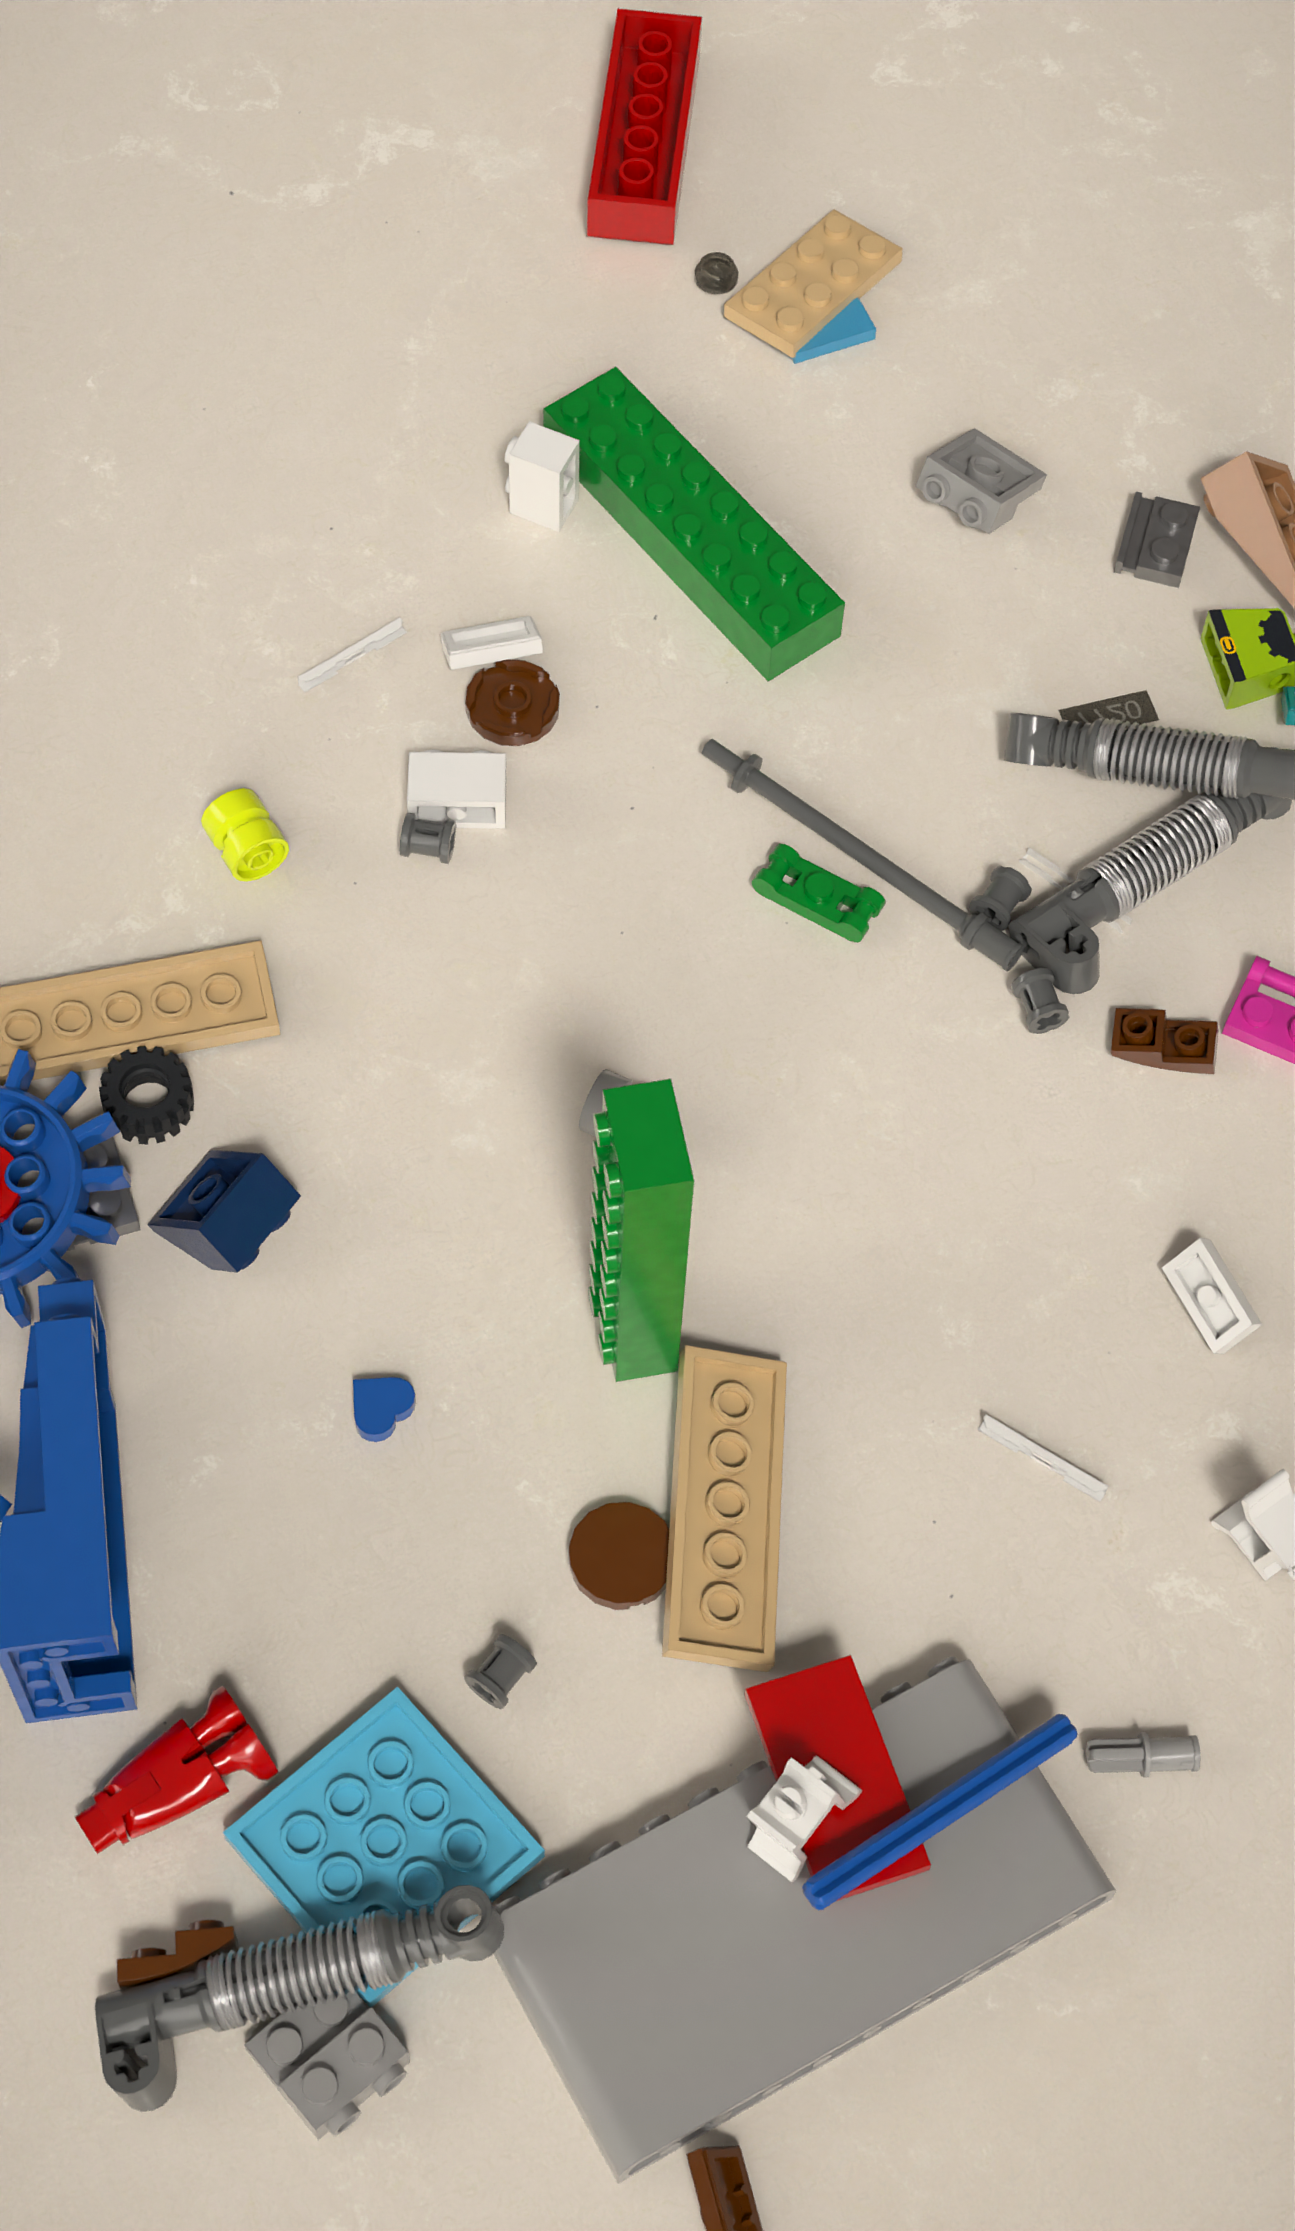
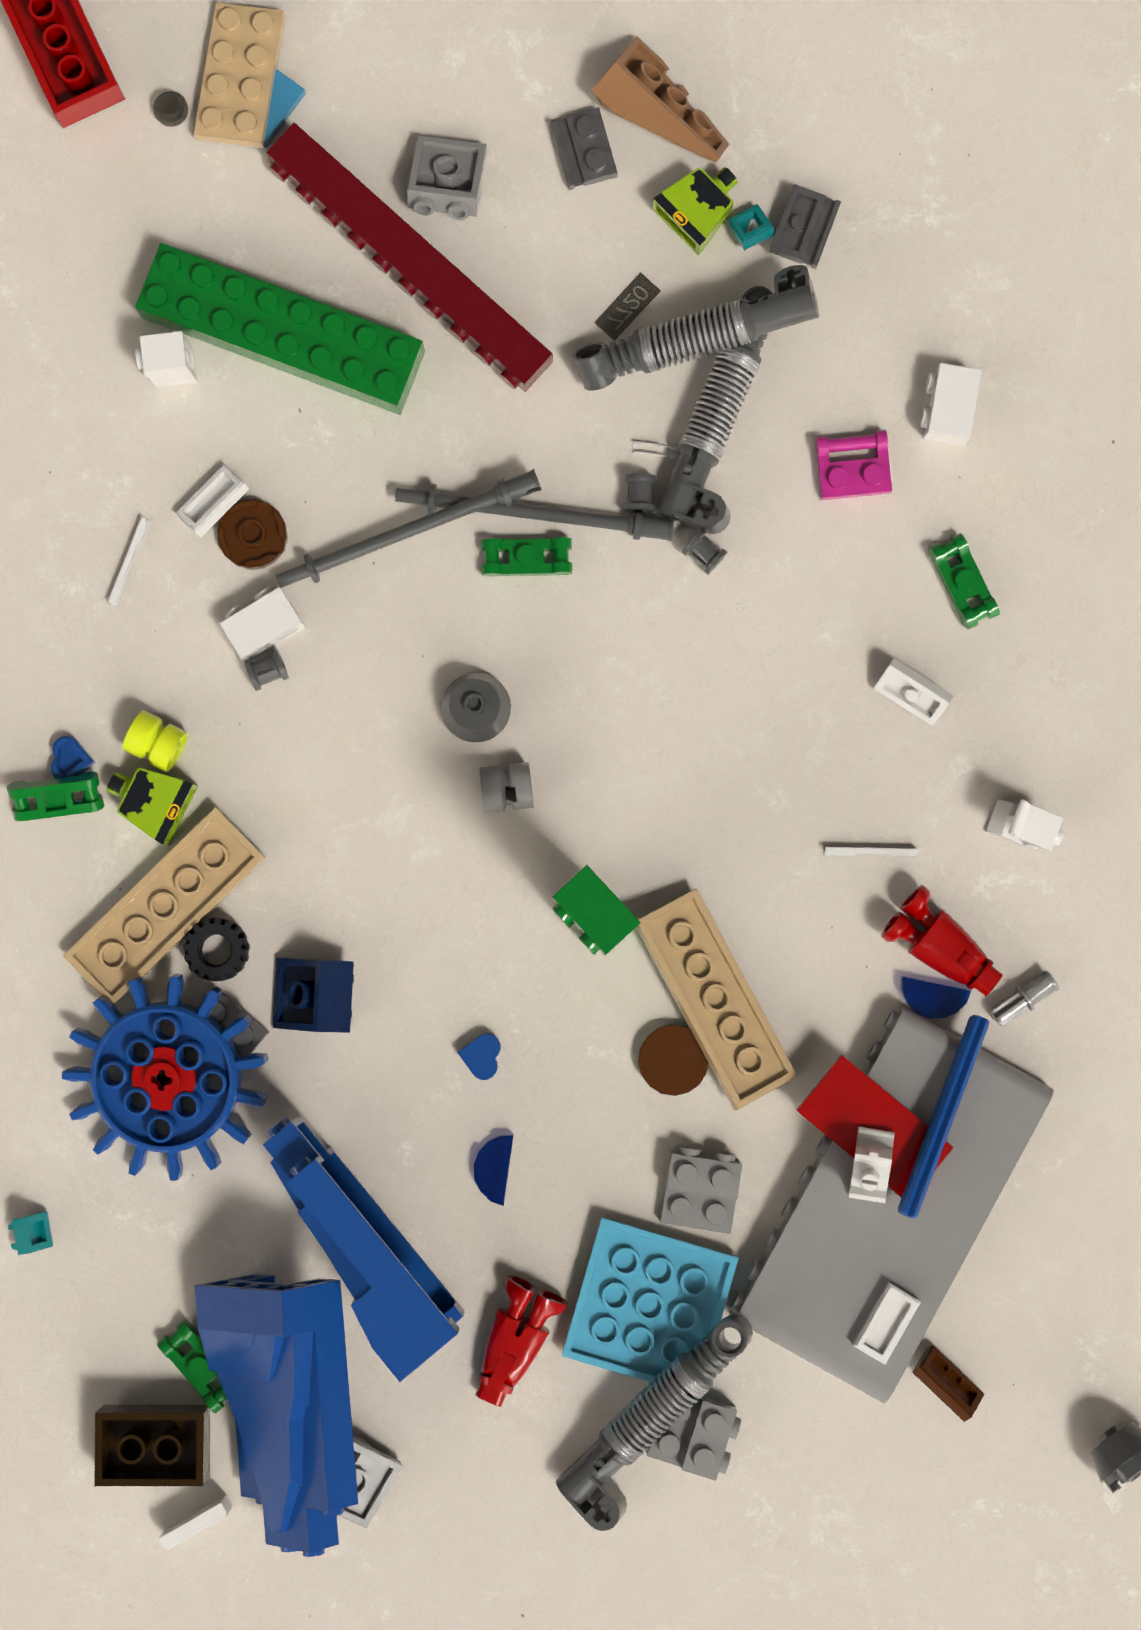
camera: 25 degrees left, 25 degrees up
(87, 829) = (55, 797): none -> green plate
(132, 809) = (70, 758): none -> blue tile
(191, 1946) = (589, 1427): reddish brown slope -> none
(196, 897) = (153, 802): none -> torso
(300, 1549) = (492, 1168): none -> clear blue tile
(500, 1671) = (650, 1171): dark grey bush -> none
(552, 1738) = (701, 1190): none -> light grey plate
(648, 1011) = (475, 707): none -> dark grey cone
(693, 2051) = (886, 1323): none -> white tile
(835, 802) = (503, 493): none -> dark grey bar
(887, 539) = (409, 257): none -> dark red brick
(1018, 1683) = (933, 999): none -> clear blue tile
(1069, 1615) = (943, 944): none -> red piece
(1160, 1043) = (792, 531): reddish brown slope -> none

